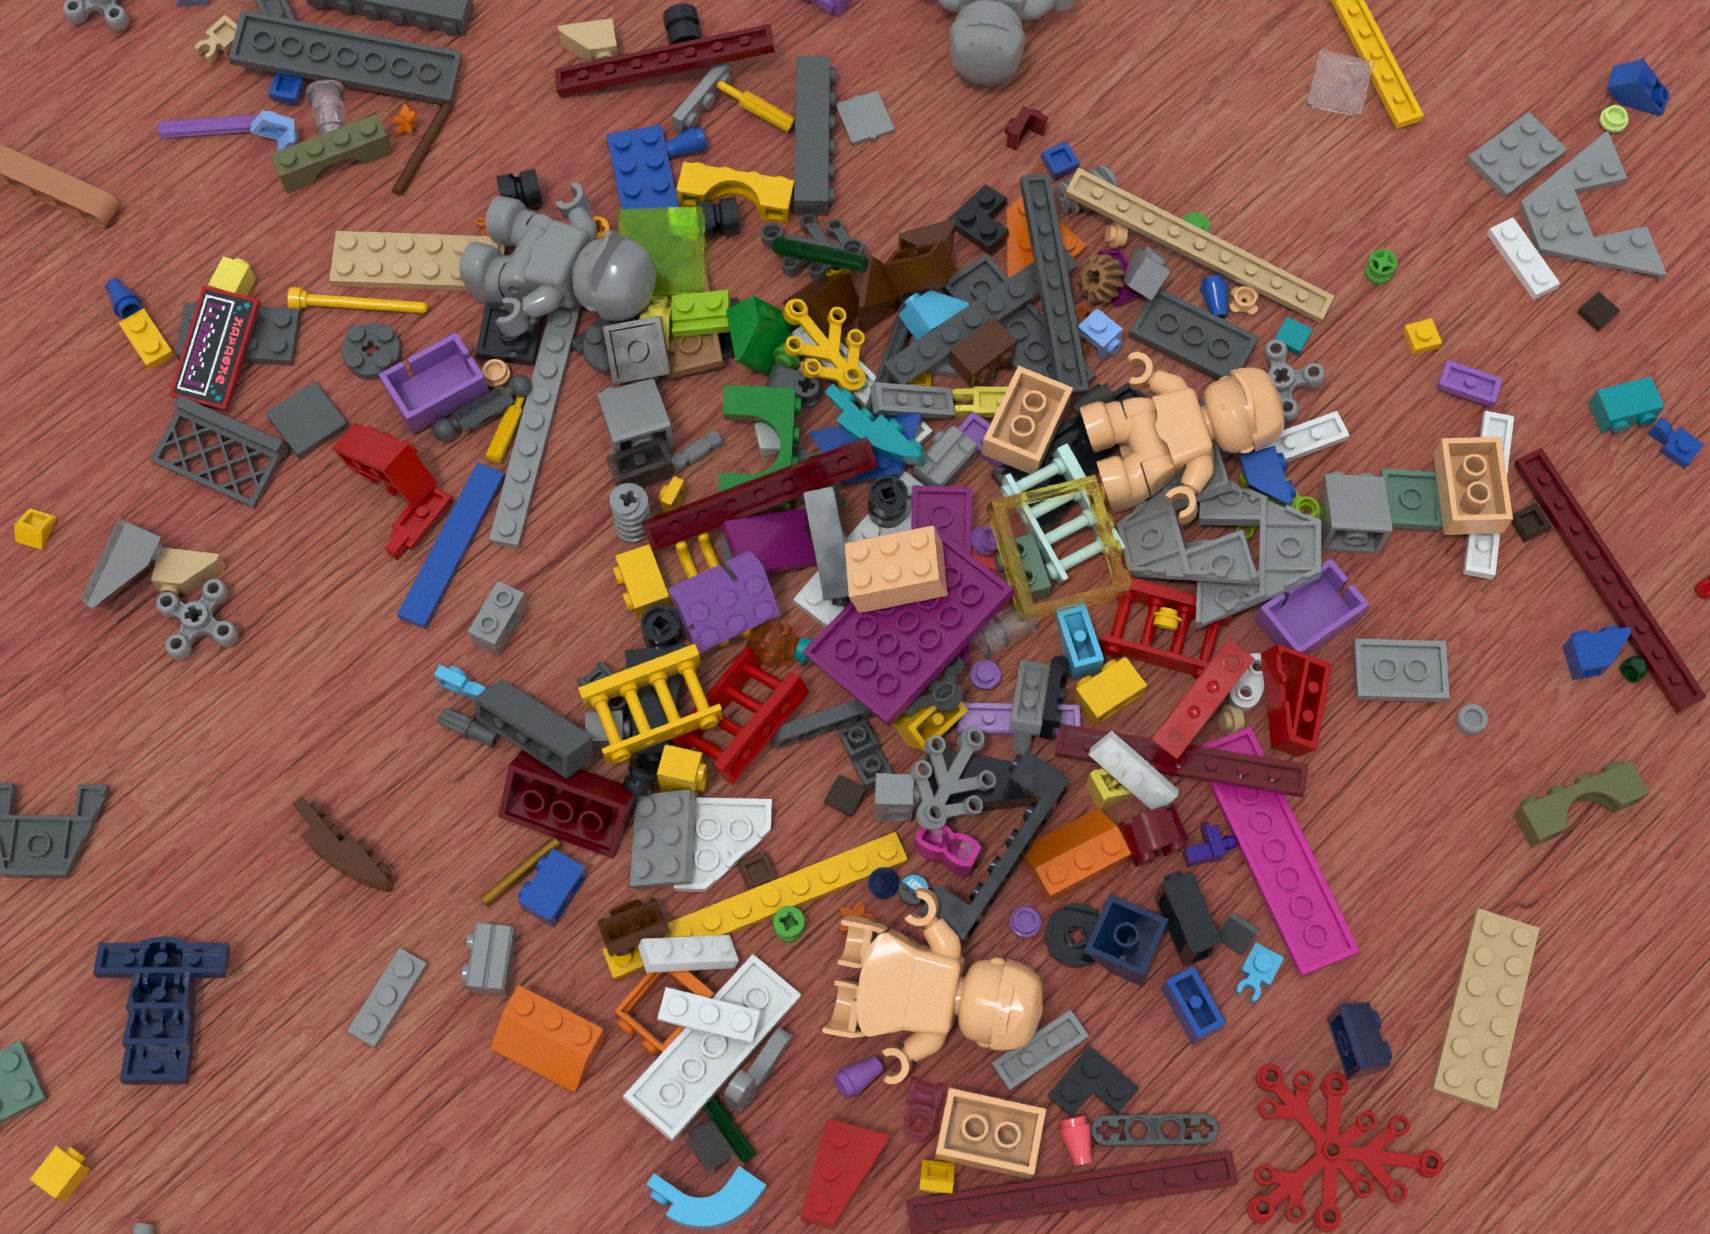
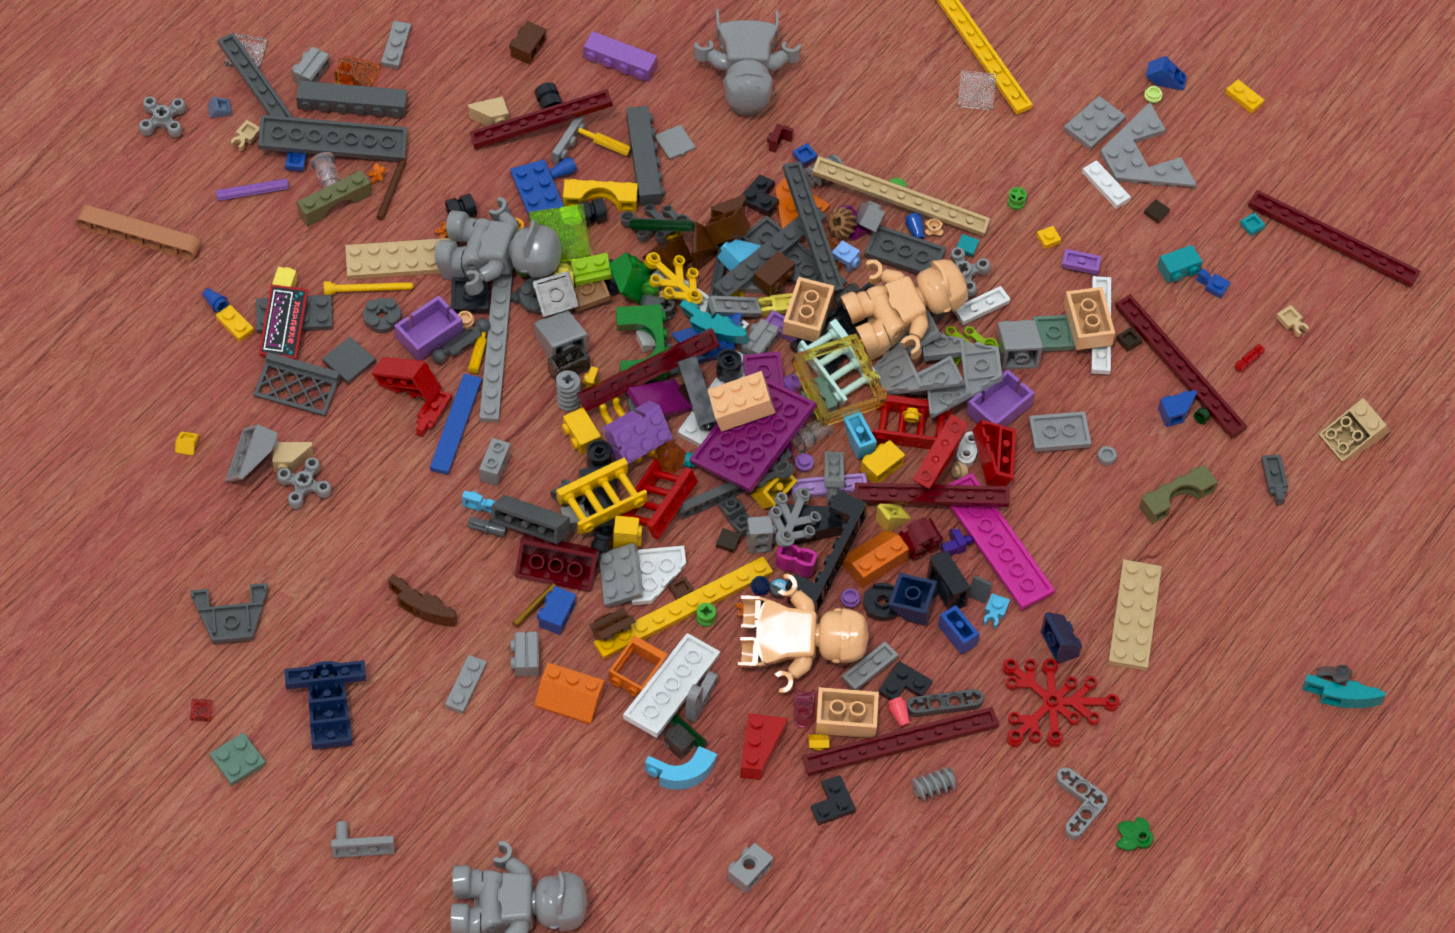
camera: 10 degrees left, 10 degrees down
(61, 1173) = (285, 800): yellow brick -> none
(275, 127) = (295, 186): light blue bracket -> none
(688, 953) = (648, 634): white plate -> none
(696, 450) = (602, 351): light grey axle -> none
(708, 1015) = (667, 665): white plate -> none
(856, 1077) = (759, 695): medium lavender cone -> none
(1054, 695) = (849, 467): black hinge -> none
(1116, 235) = (847, 196): light nougat plate -> none
(1133, 771) = (902, 502): white plate -> none
(1265, 475) = (960, 325): blue slope -> none

